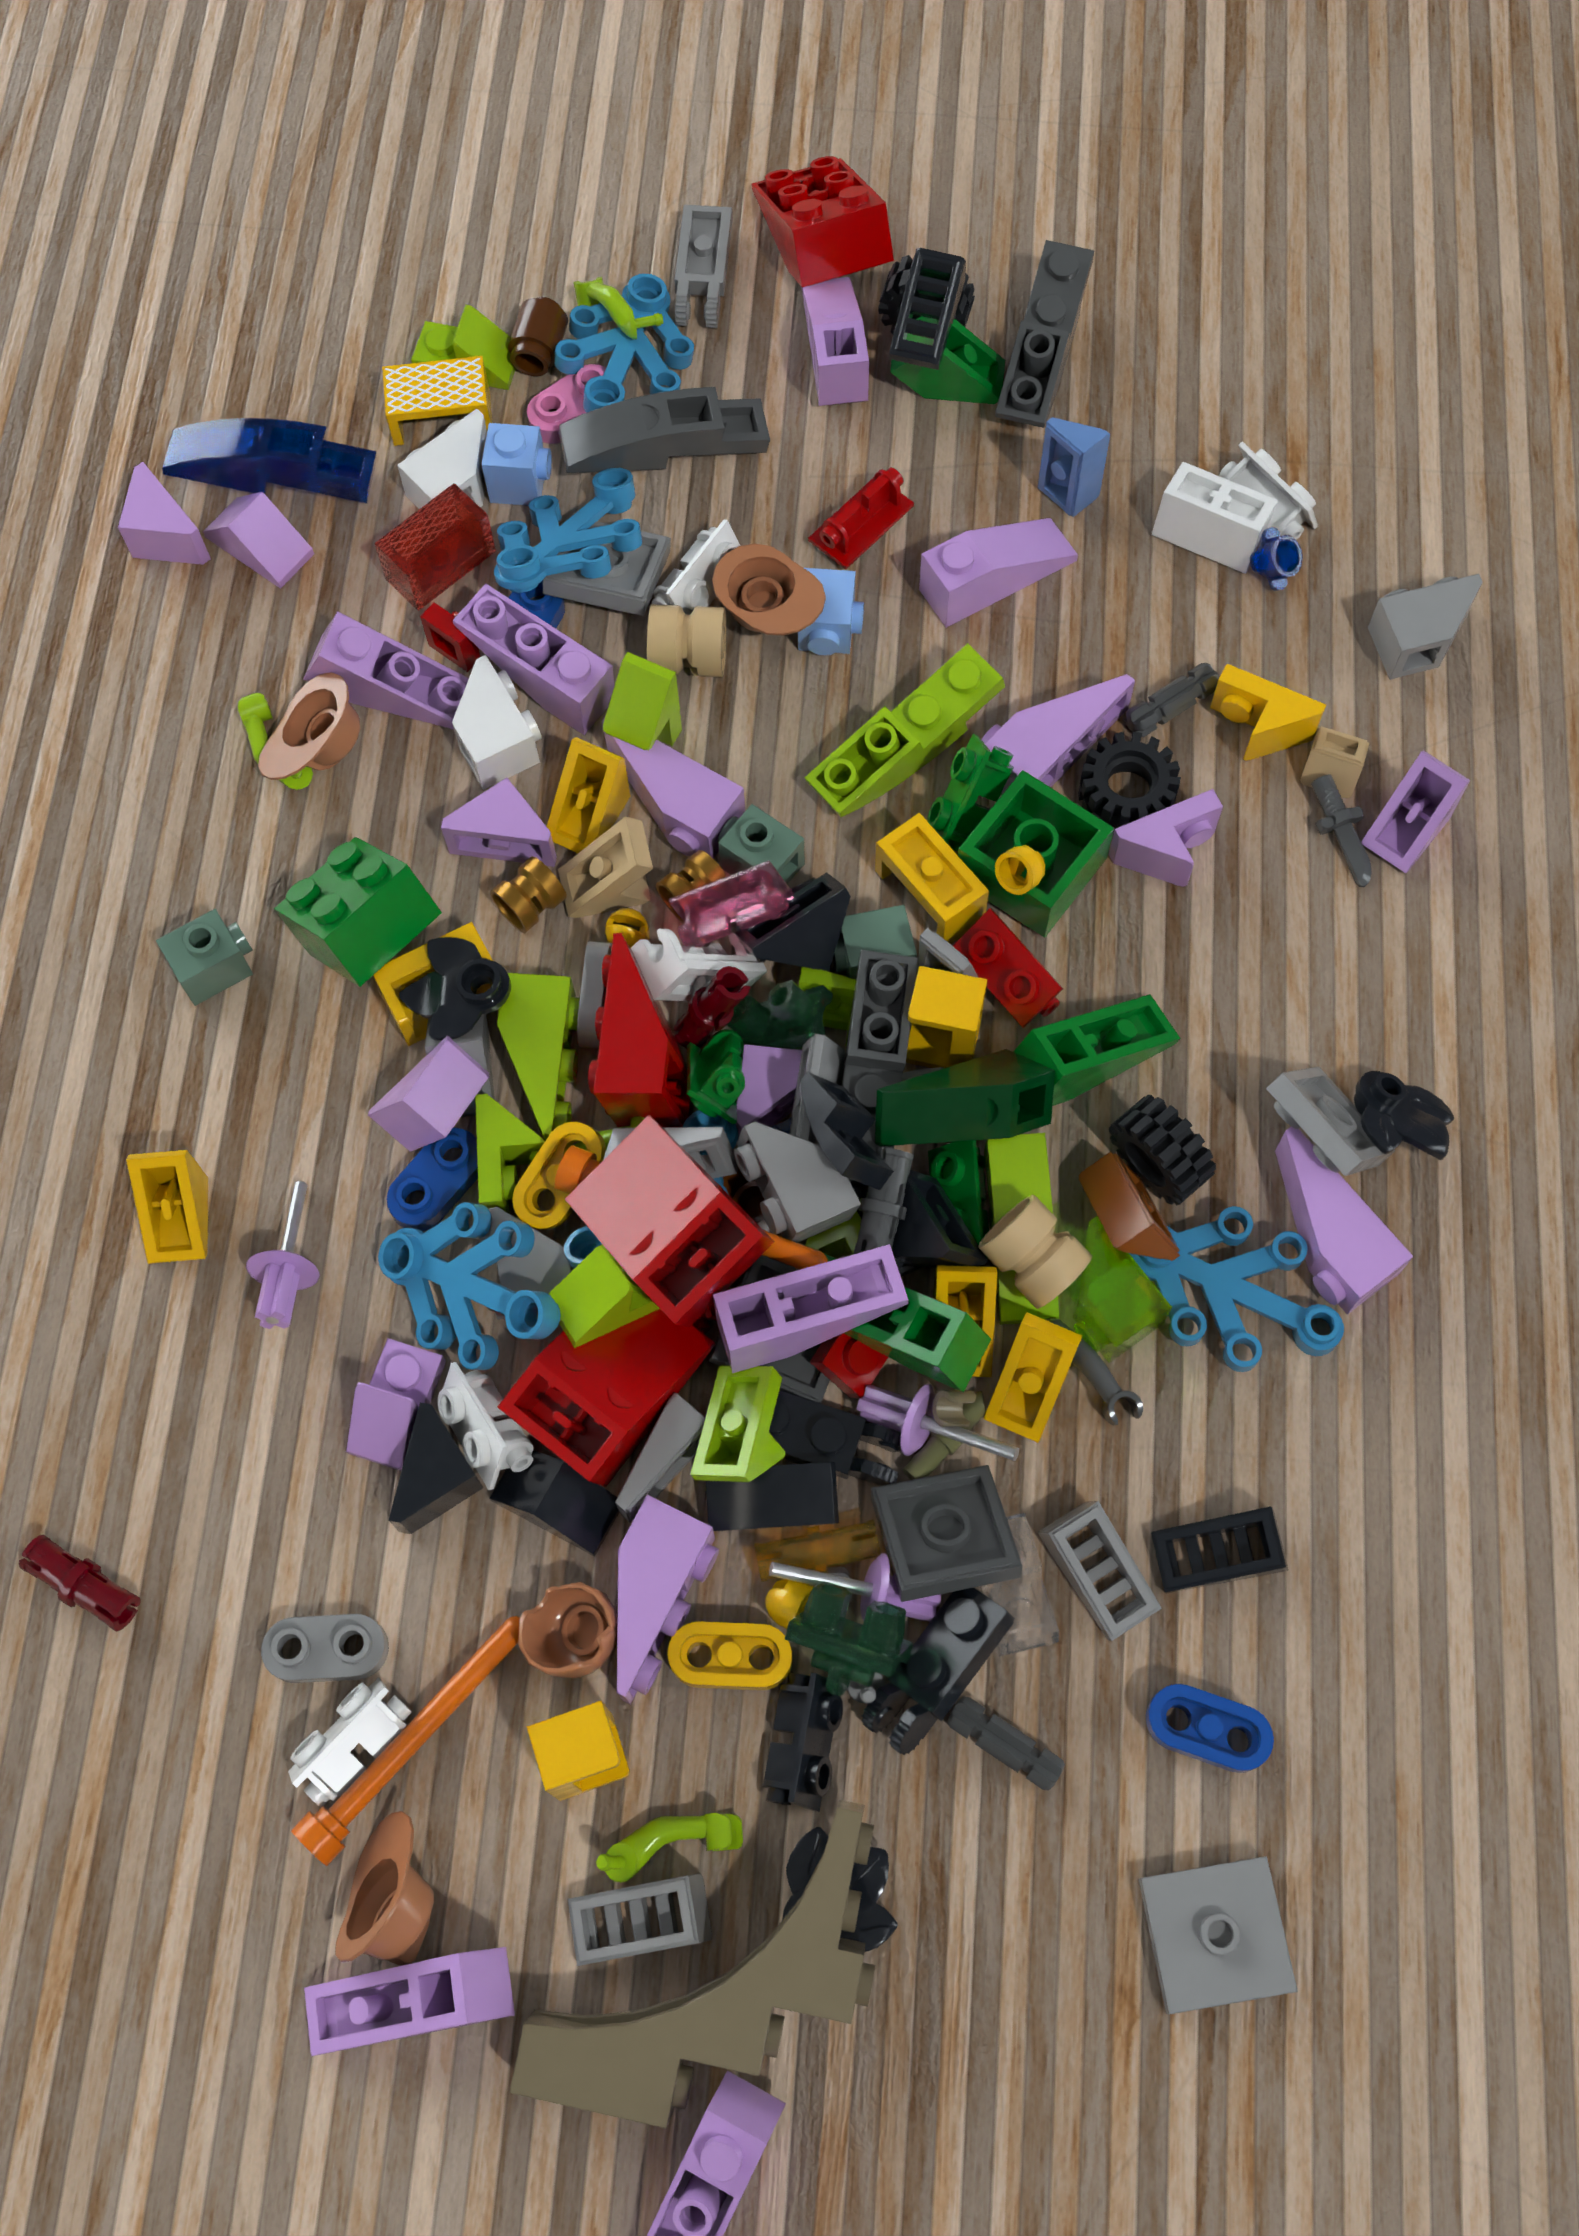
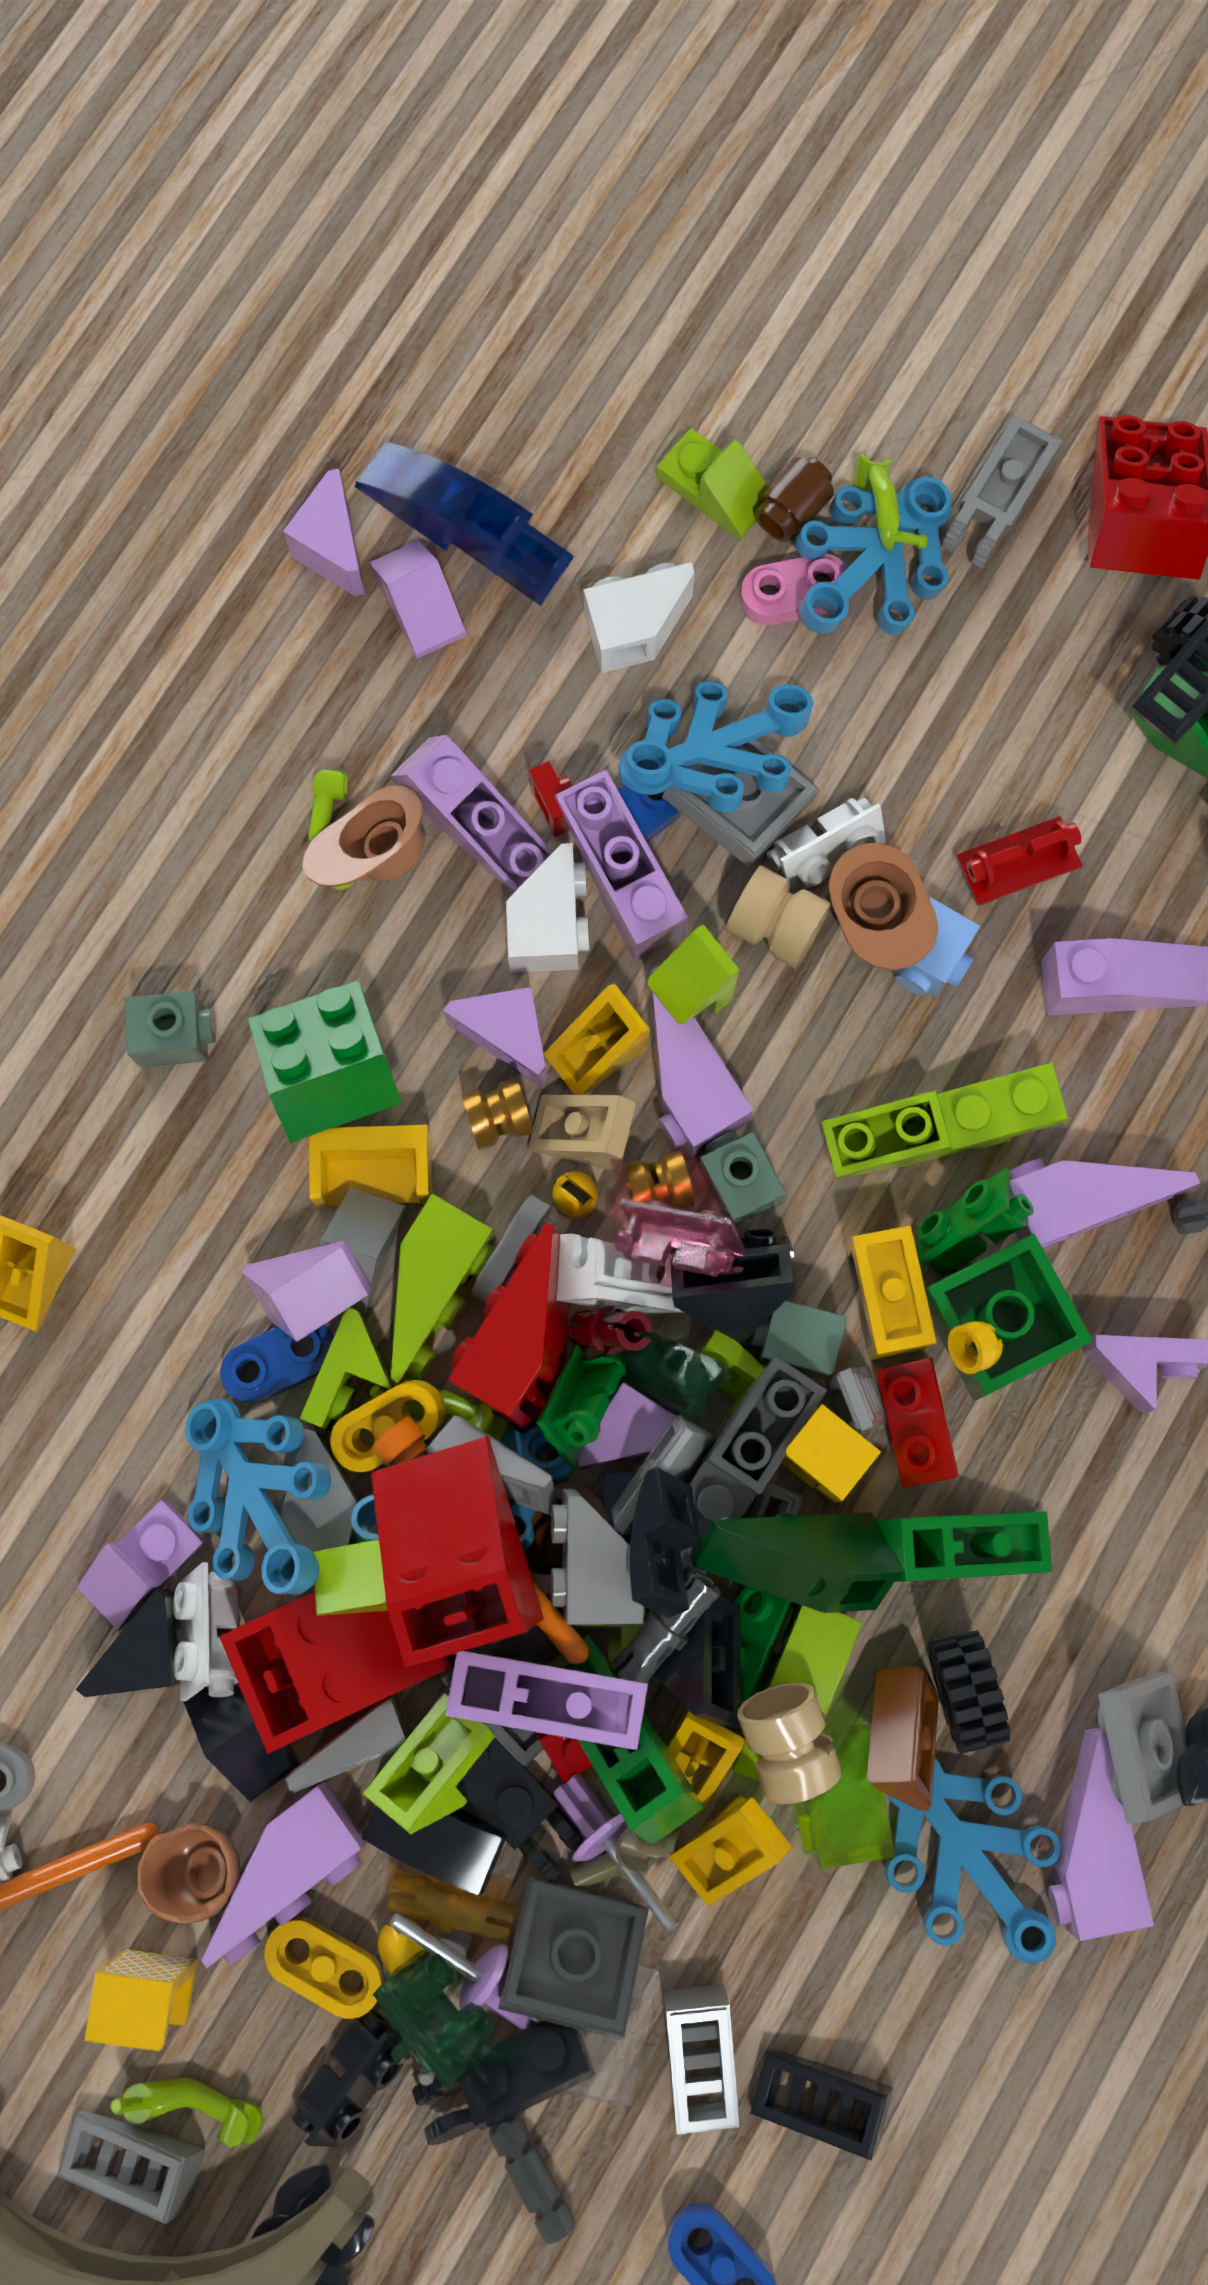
camera: 25 degrees right, 10 degrees up
(282, 1270) = (93, 1389): lavender piece -> none
(434, 391) = (662, 521): yellow panel -> none
(436, 546) = (583, 693): clear red panel -> none
(450, 991) = (371, 1188): black plate -> none
(515, 463) = (703, 637): light blue brick -> none
(659, 425) = (869, 668): dark grey slope -> none
(836, 342) = (1094, 645): lavender slope -> none
(1102, 1379) = (793, 1869): dark grey piece -> none
(1134, 758) = (1167, 1261): black tyre -> none

